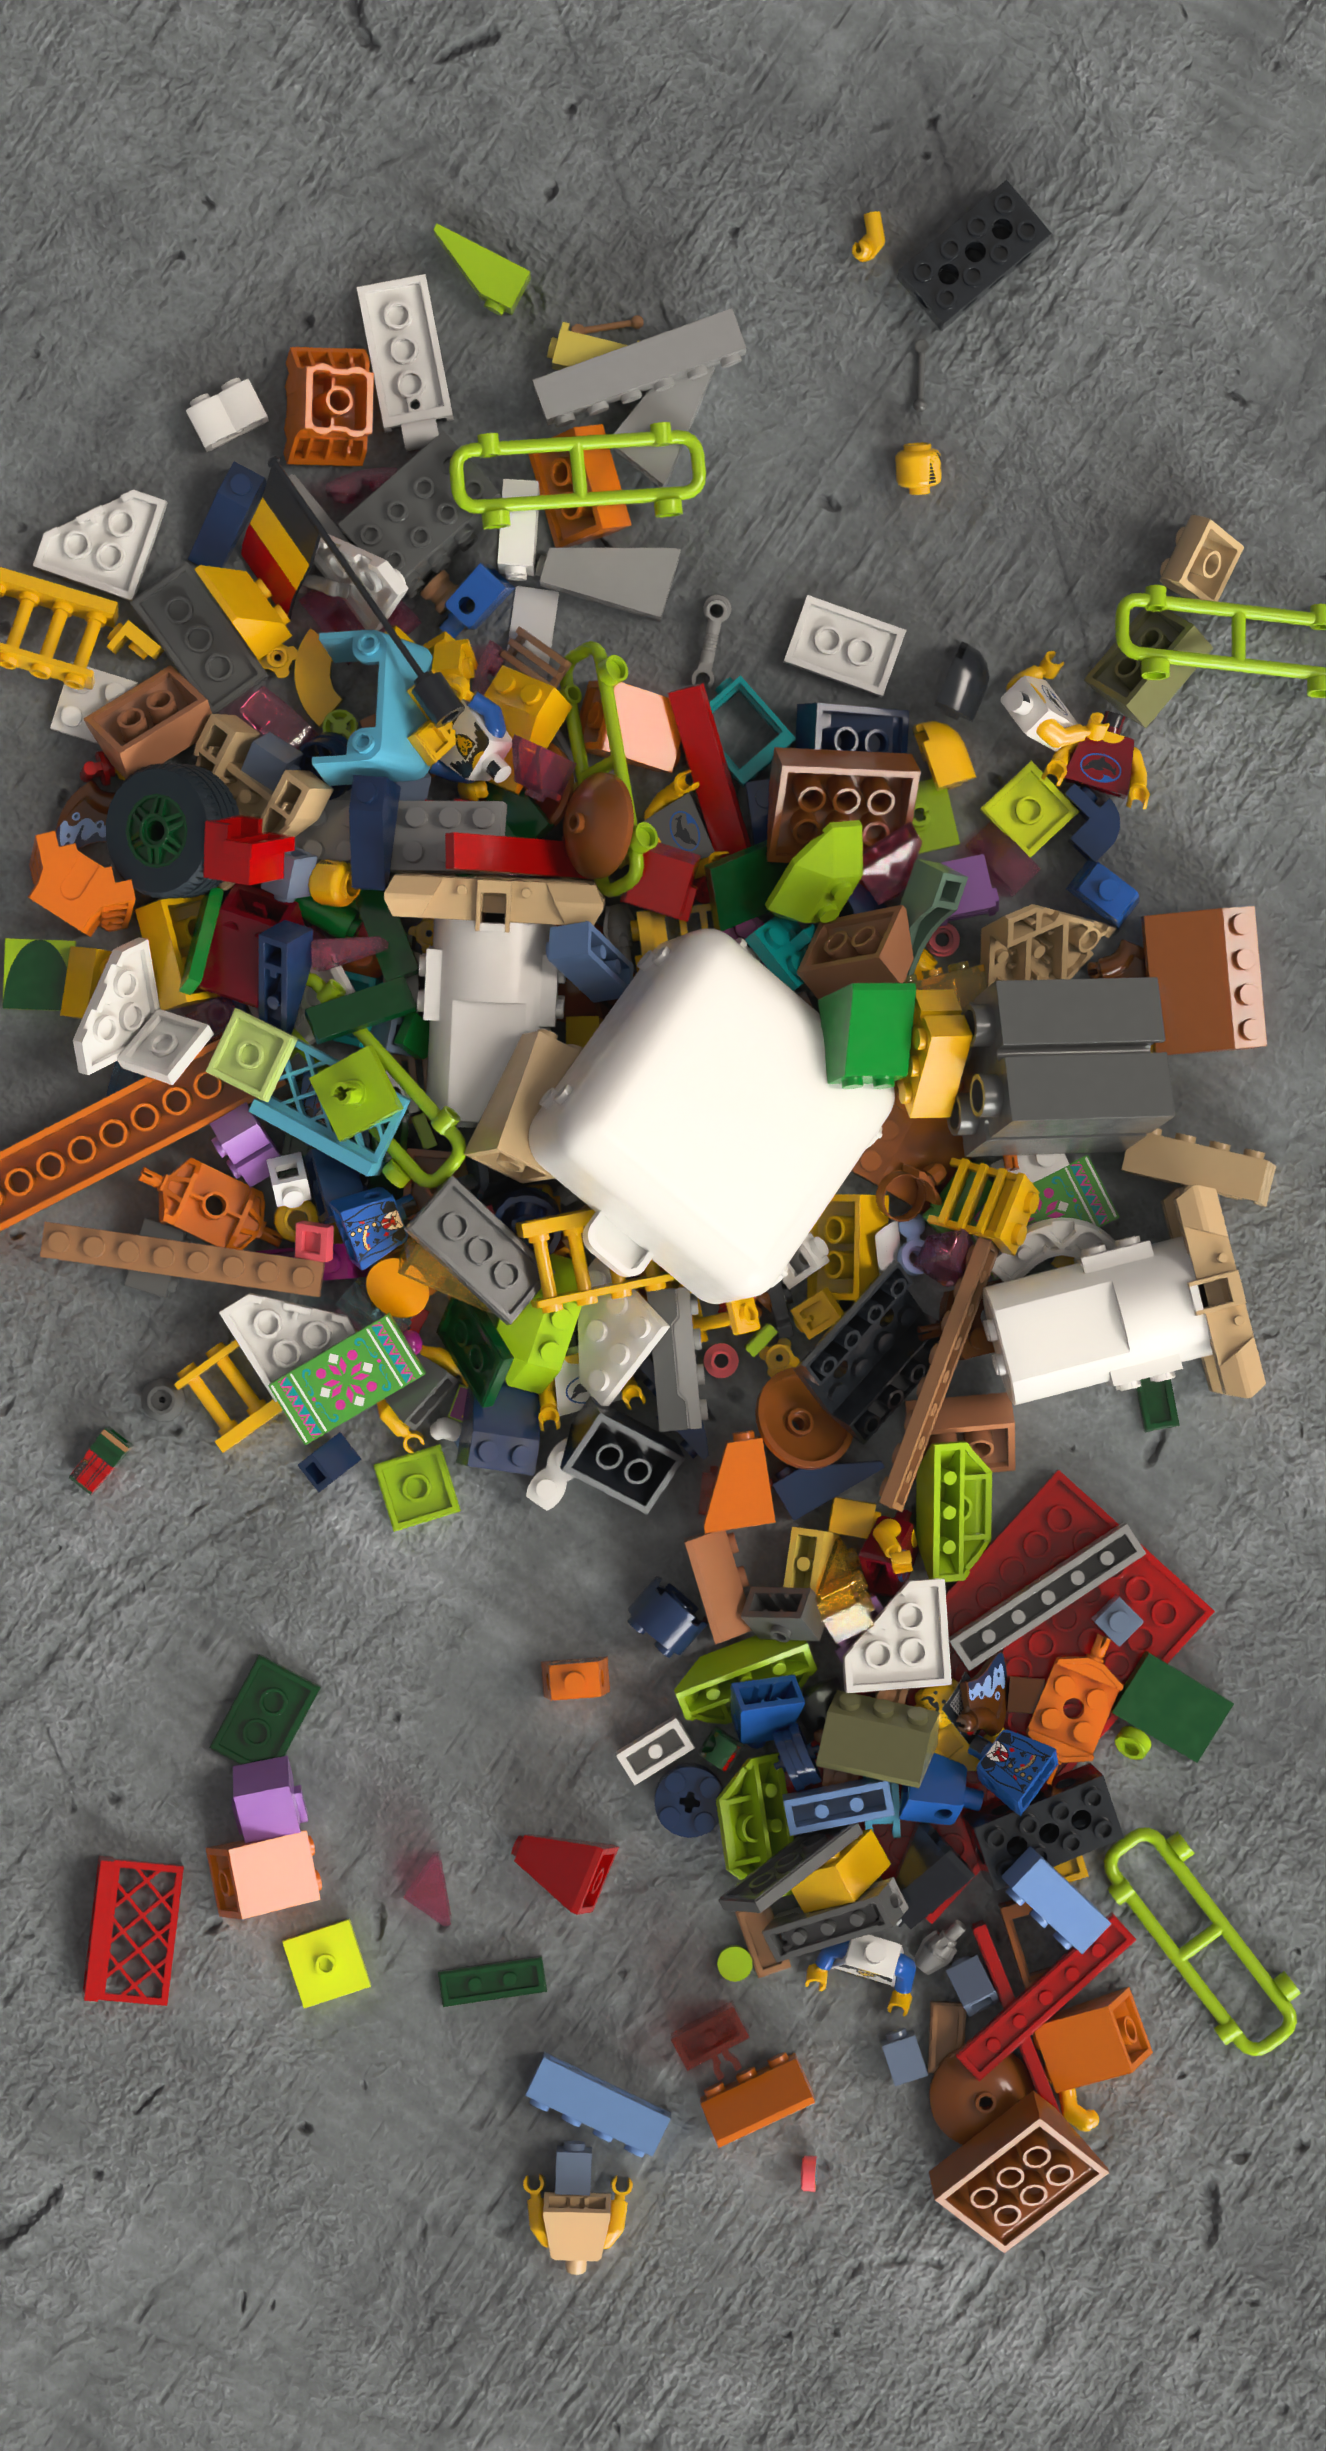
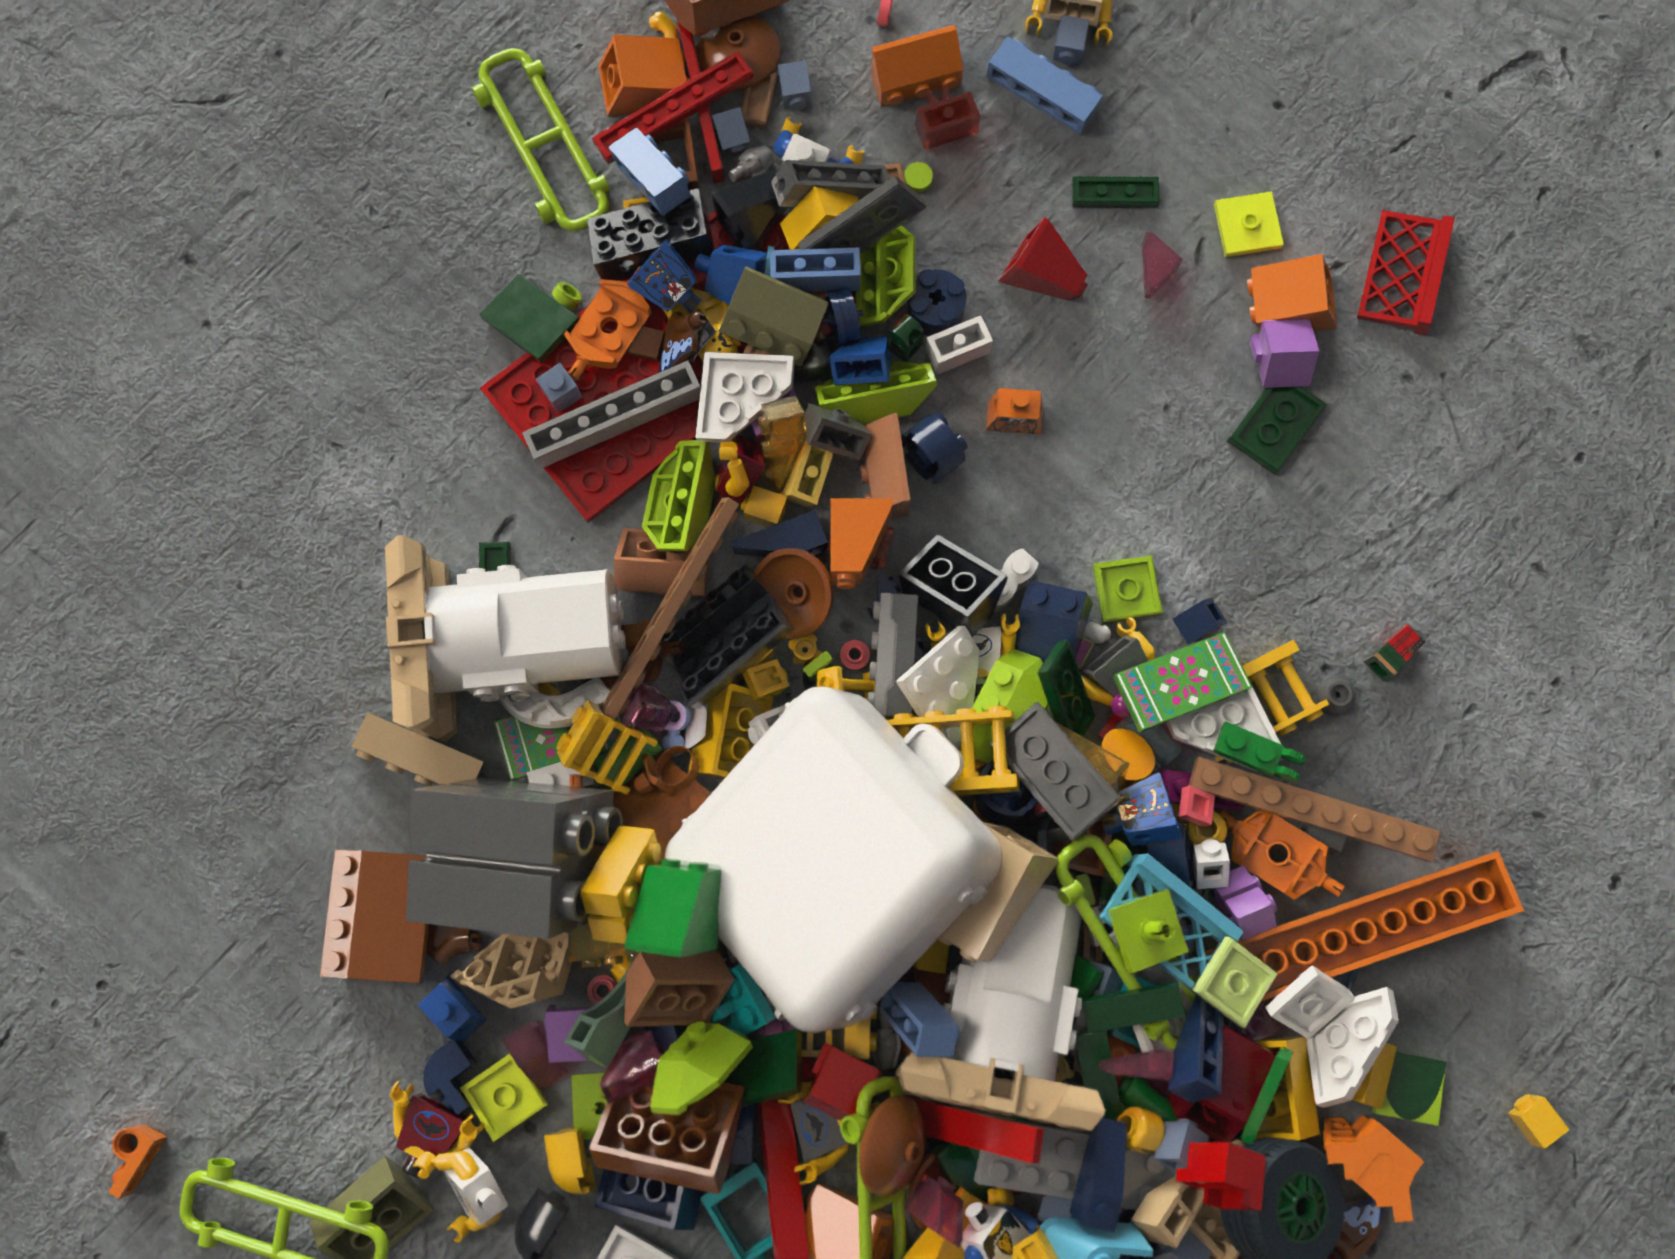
camera: 170 degrees left, 10 degrees down
(256, 1311) = (1257, 752): none -> green hinge

